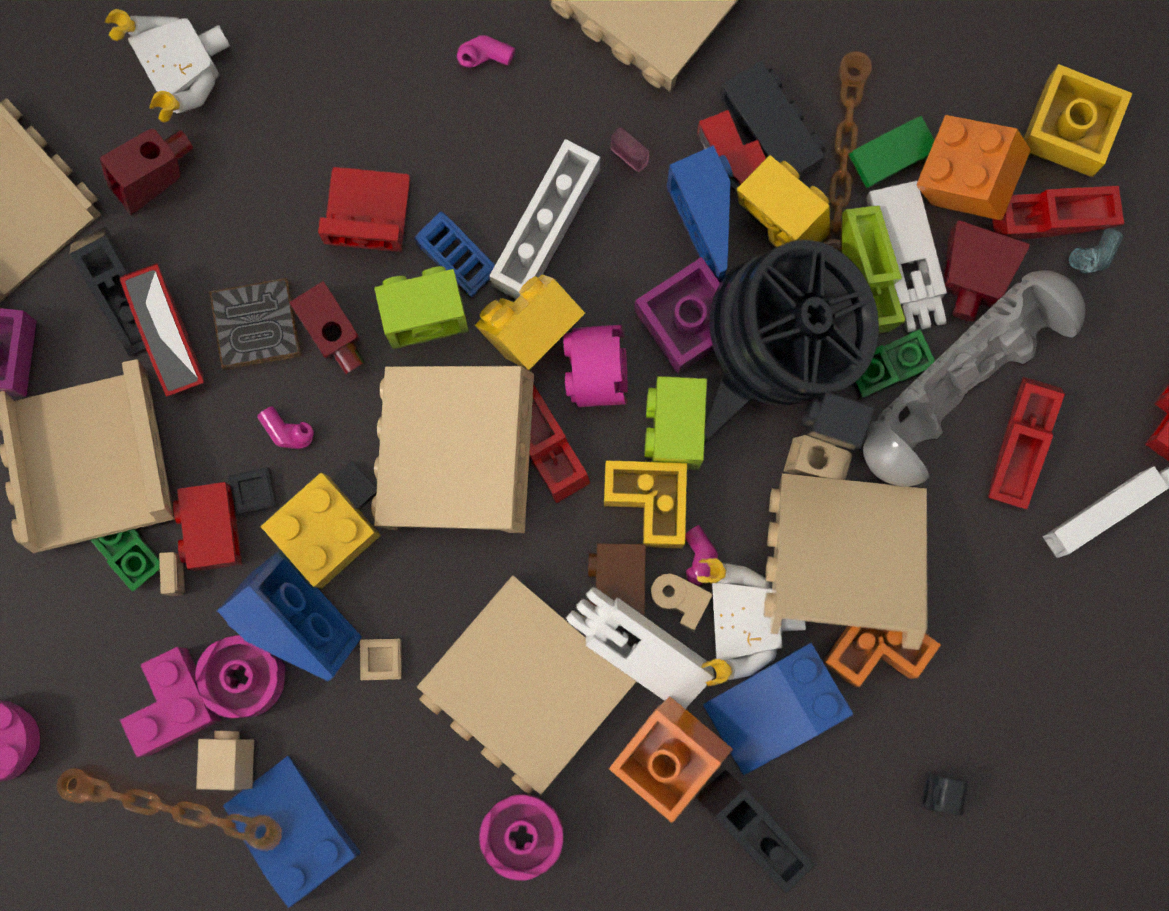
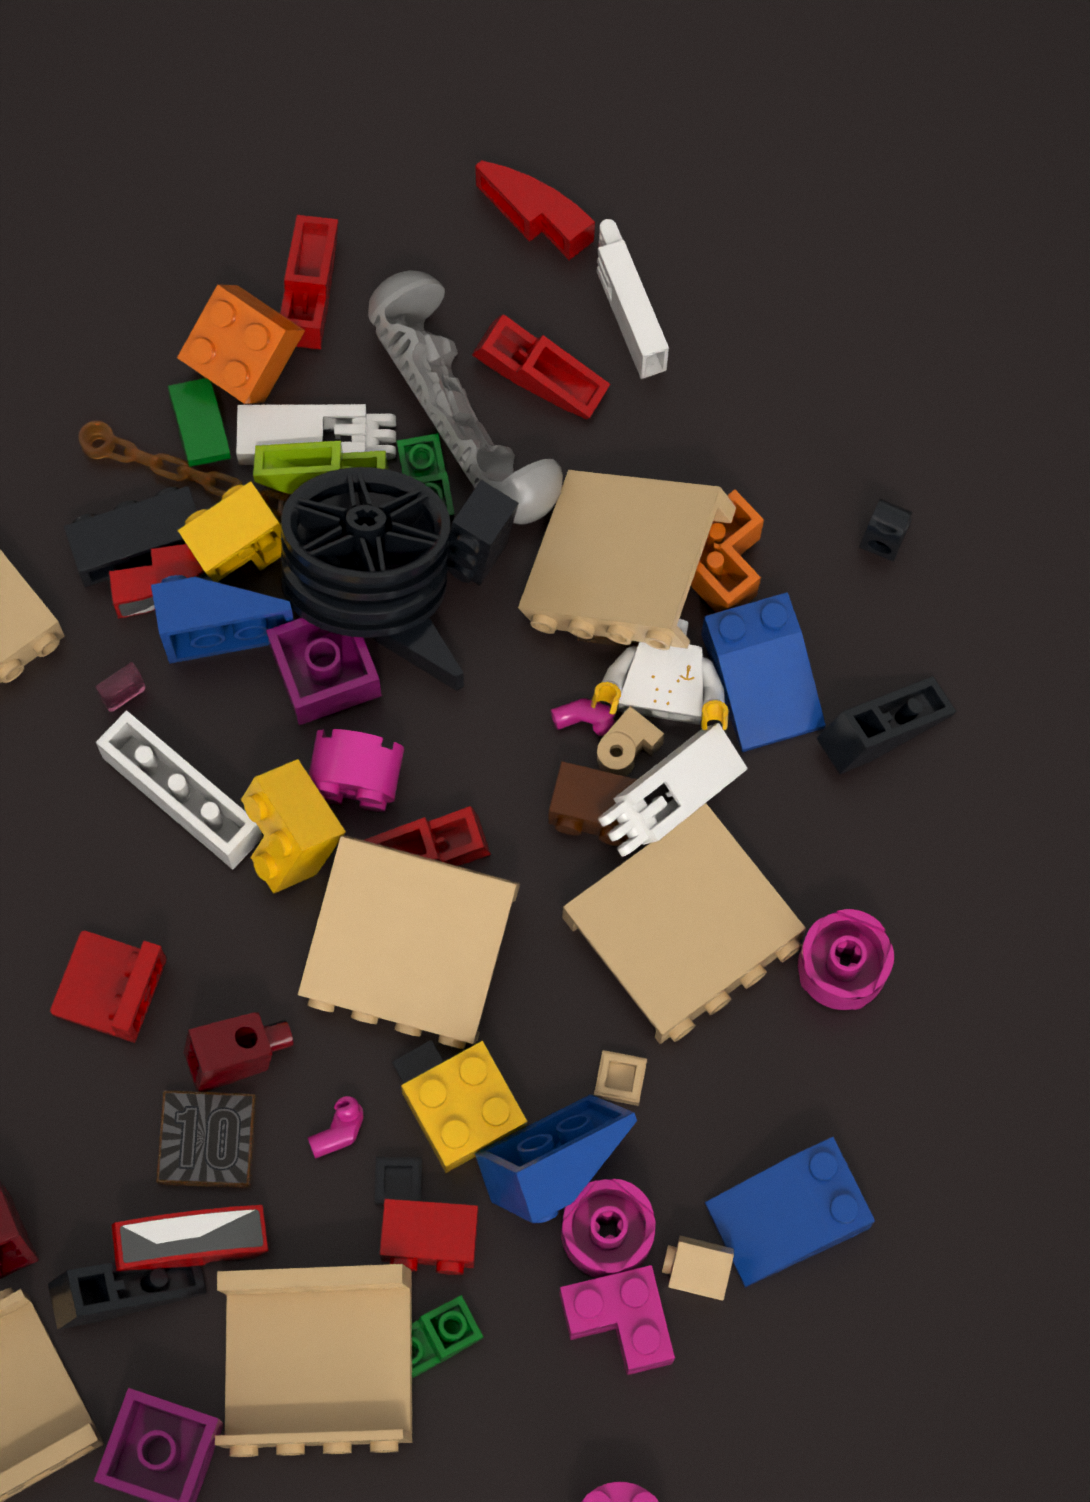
camera: 80 degrees left, 10 degrees down
(85, 788) = (732, 1352): clear orange piece -> none
(171, 574) = (473, 1287): tan tile -> none
(421, 307) = (243, 939): lime brick -> none
(432, 229) = (196, 912): blue slope -> none
(657, 489) = (509, 736): yellow brick -> none
(670, 758) = (795, 785): orange brick -> none
(678, 421) = (439, 699): lime brick -> none
(817, 459) = (508, 574): tan leg -> none
(979, 267) = (346, 366): dark red torso -> none
(1076, 120) = (217, 235): yellow brick -> none
(1097, 257) = (365, 254): clear light blue arm -> none

